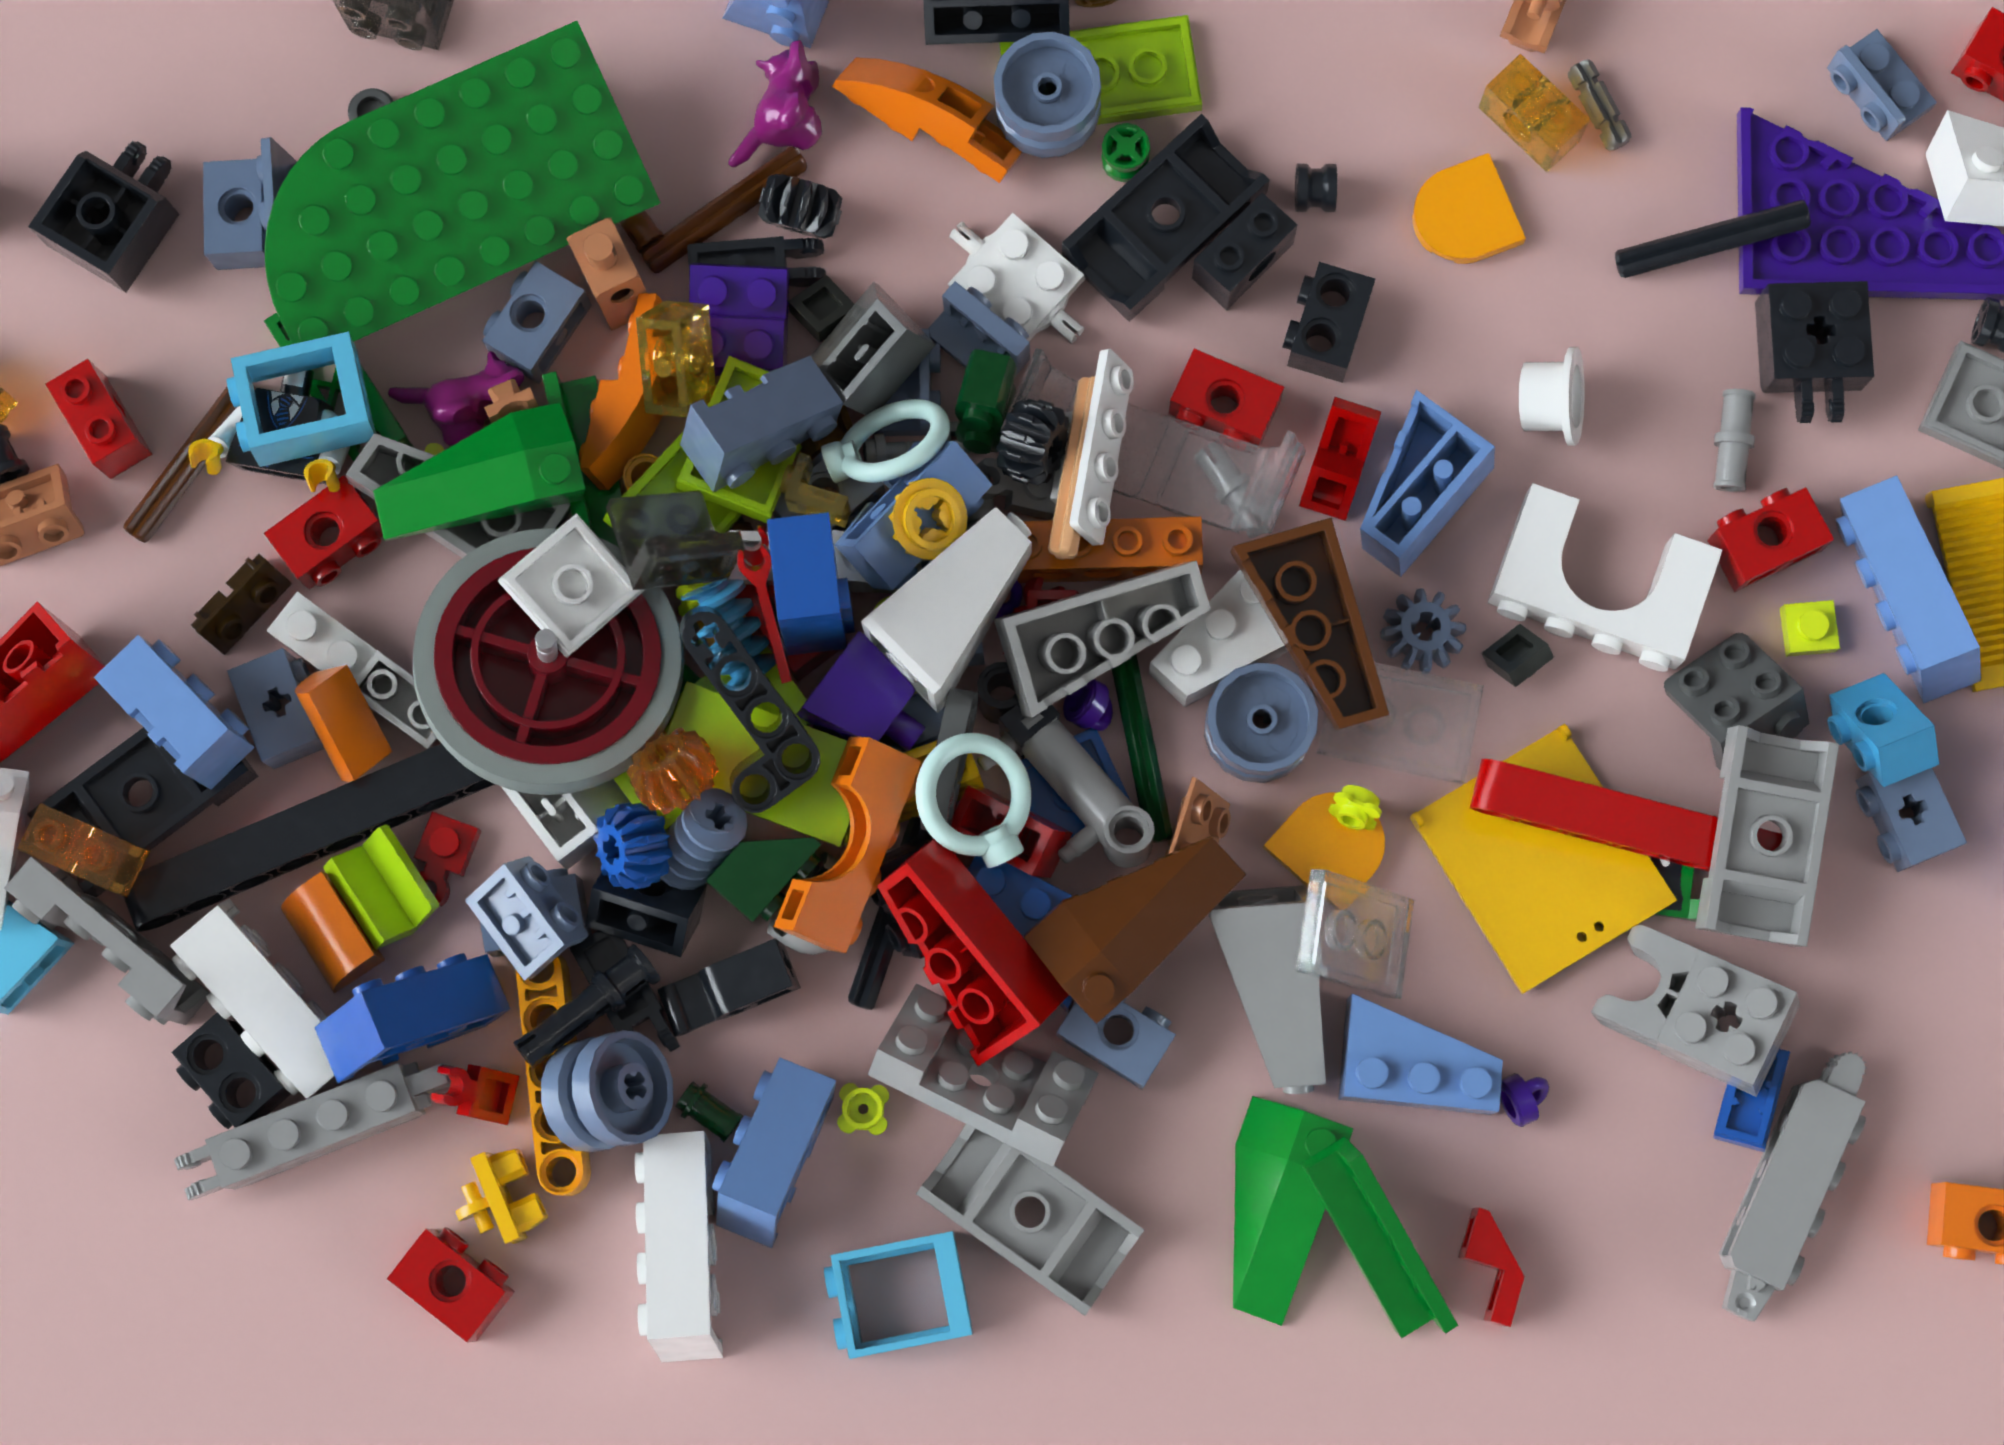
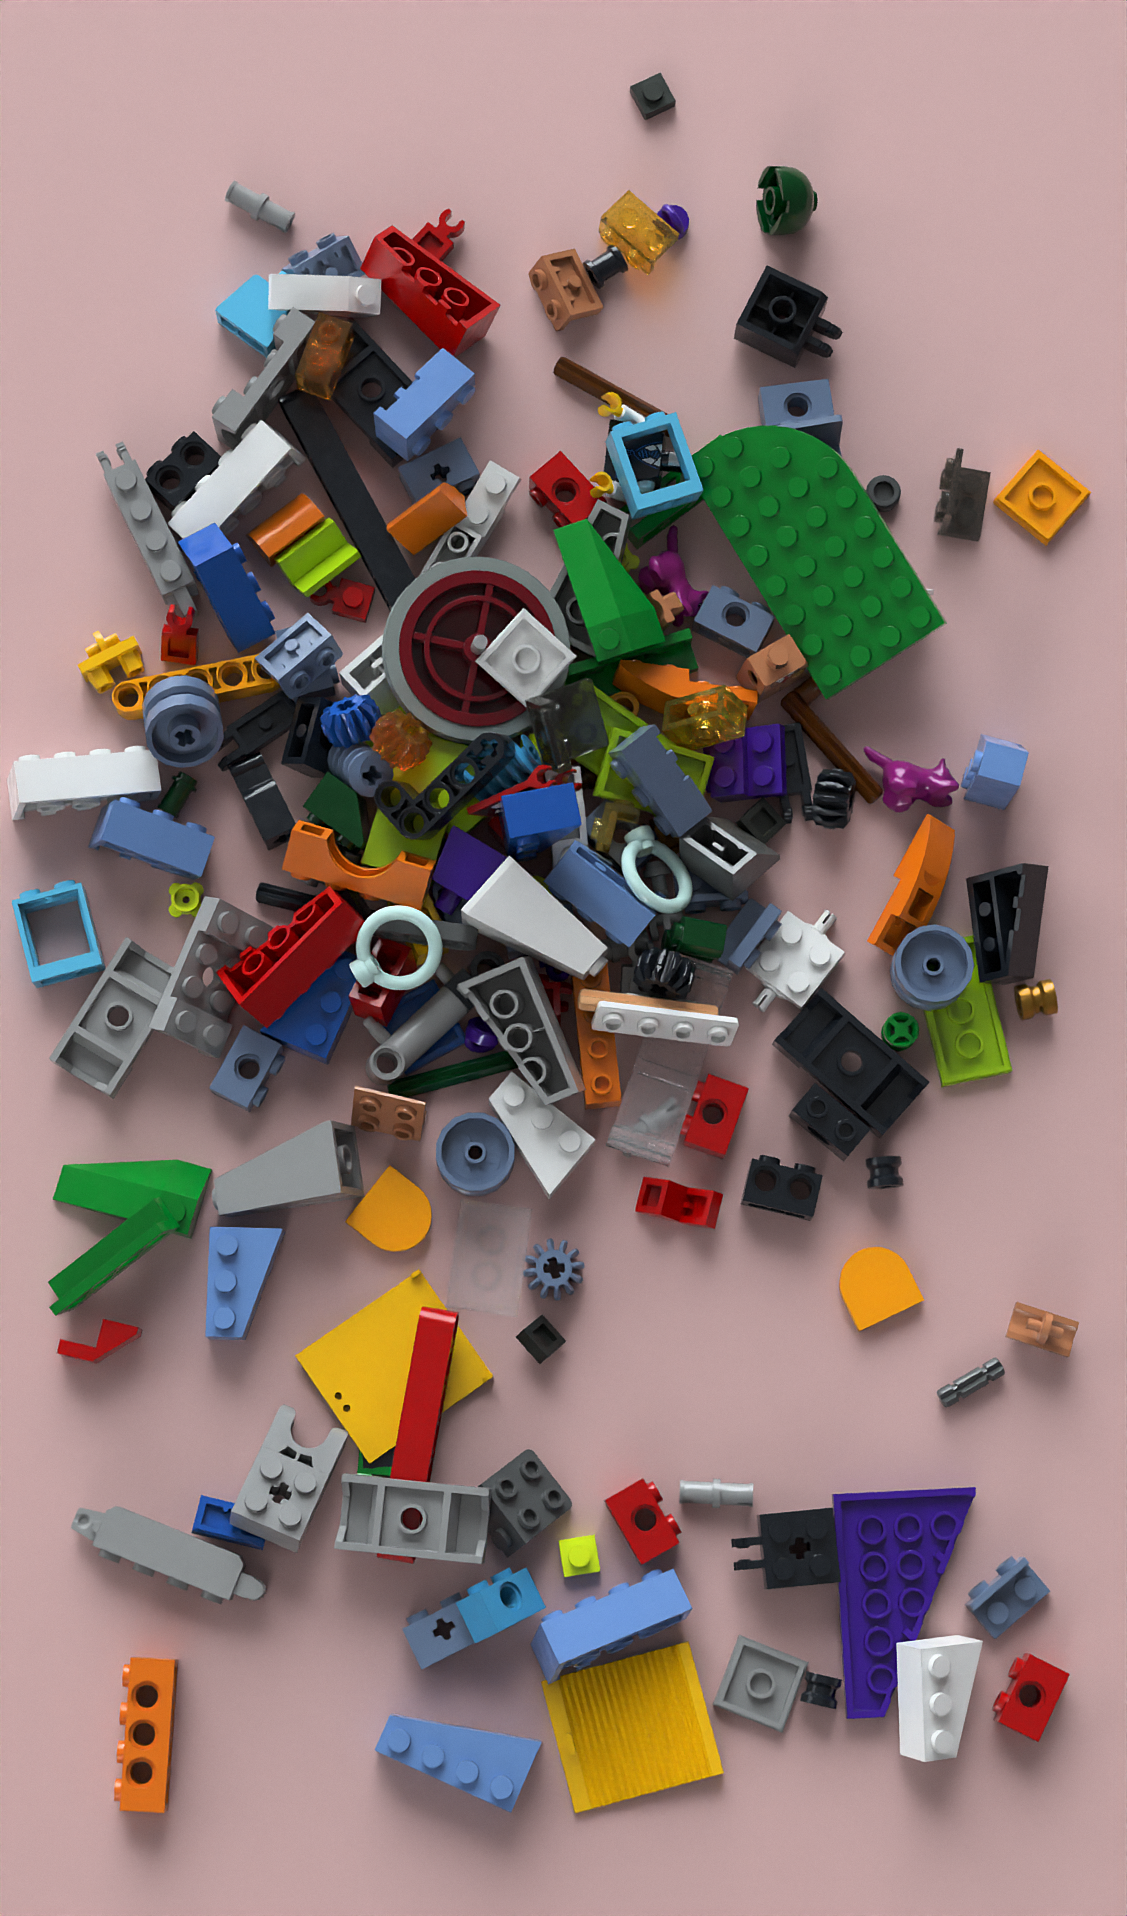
camera: 75 degrees right, 0 degrees up
(98, 419) = (636, 330): red brick -> none
(228, 618) = (501, 433): dark brown hinge -> none
(422, 1275) = (51, 613): red brick -> none
(606, 993) = (251, 714): black pin -> none
(948, 512) = (578, 903): yellow gear -> none
(1123, 930) = (311, 1059): reddish brown wedge -> none
(1314, 610) = (551, 1179): reddish brown wedge -> none
(1355, 934) = (324, 1228): clear tile -> none
(1356, 807) = (417, 1225): neon yellow plate -> none
(1426, 482) = (660, 1261): medium blue wedge -> none
(1522, 1098) = (219, 1356): dark purple tile -> none
(1533, 112) = (956, 1330): clear yellow brick -> none
(1534, 587) = (596, 1346): white arch -> none
(1553, 396) = (735, 1355): white piece -> none
(1713, 238) = (868, 1468): black axle -> none

